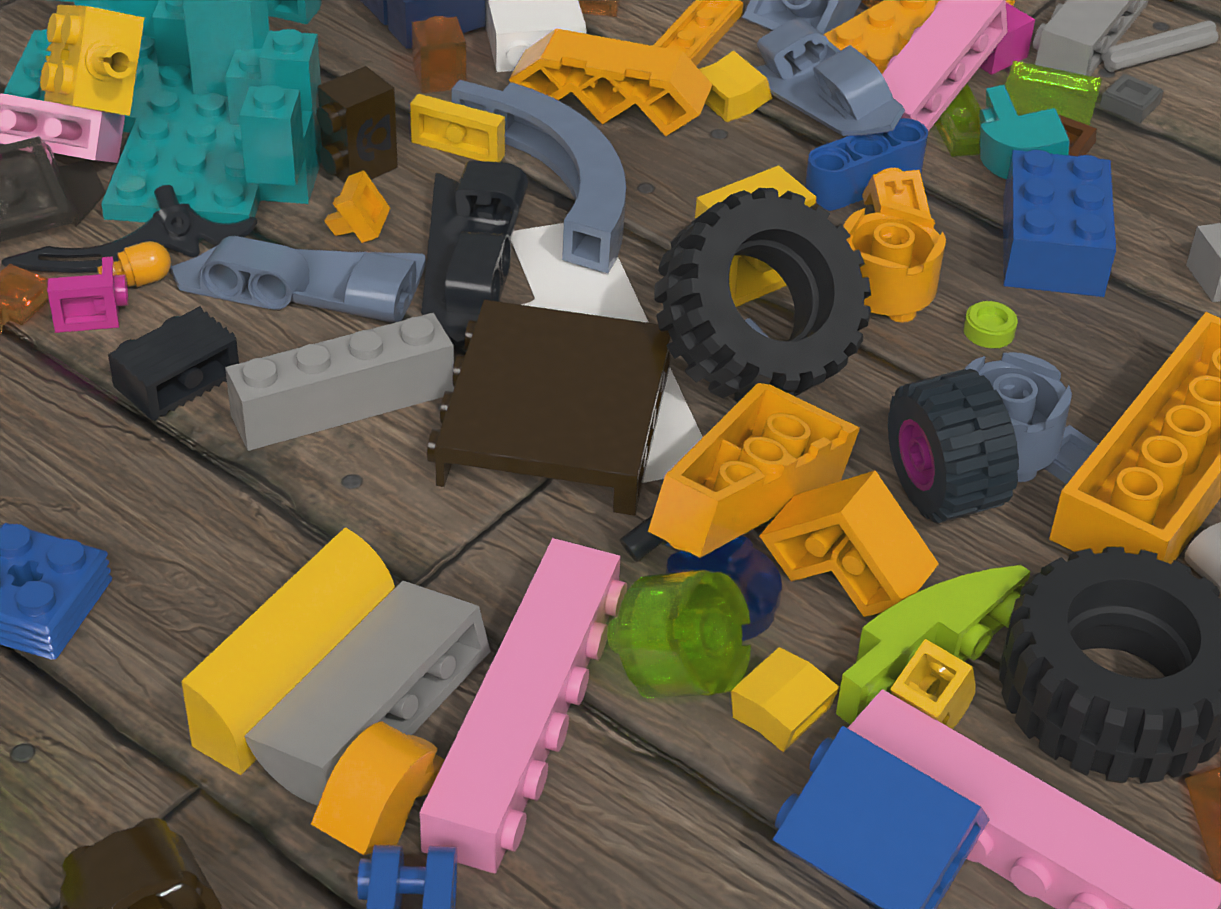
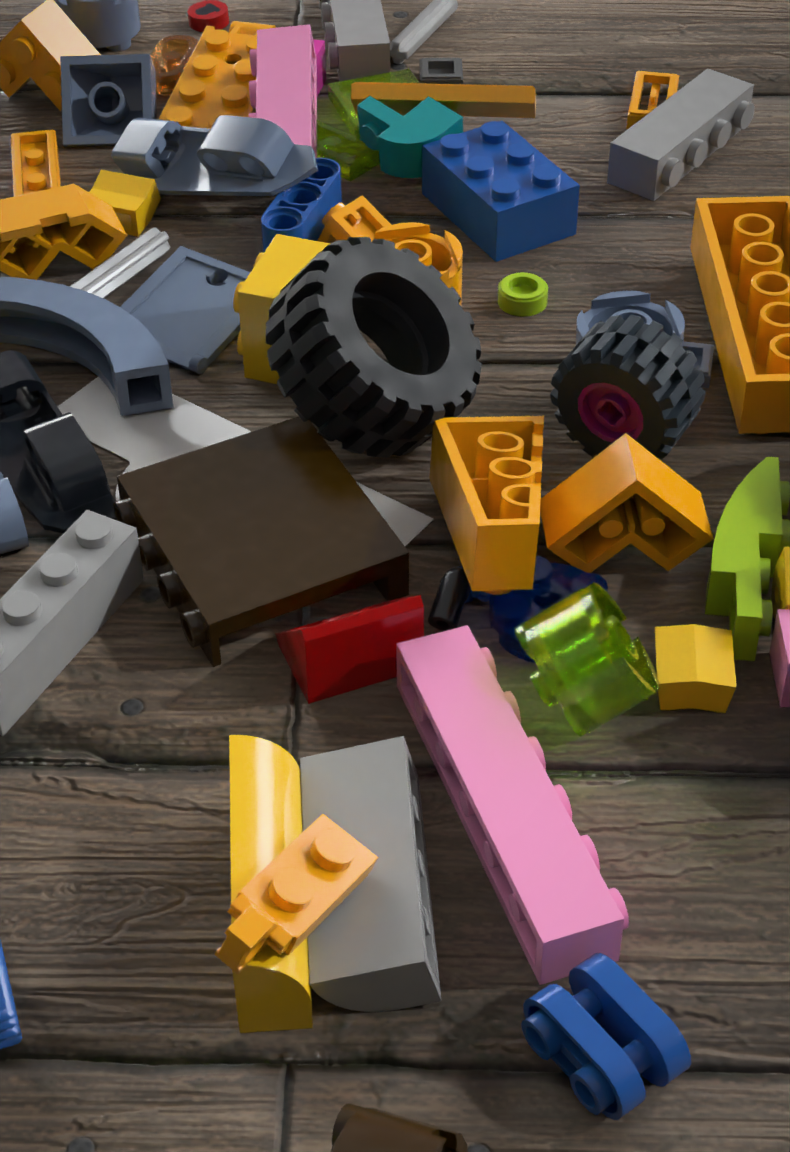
camera: 35 degrees left, 0 degrees up
(271, 661) = (295, 893): none -> light orange hinge
(376, 787) = (477, 950): light orange brick -> none
(522, 523) = (351, 647): none -> red slope
(666, 197) = (189, 307): none -> sand blue container
(676, 141) = (125, 264): none -> light grey axle
(1083, 120) = (464, 99): none -> light orange tile

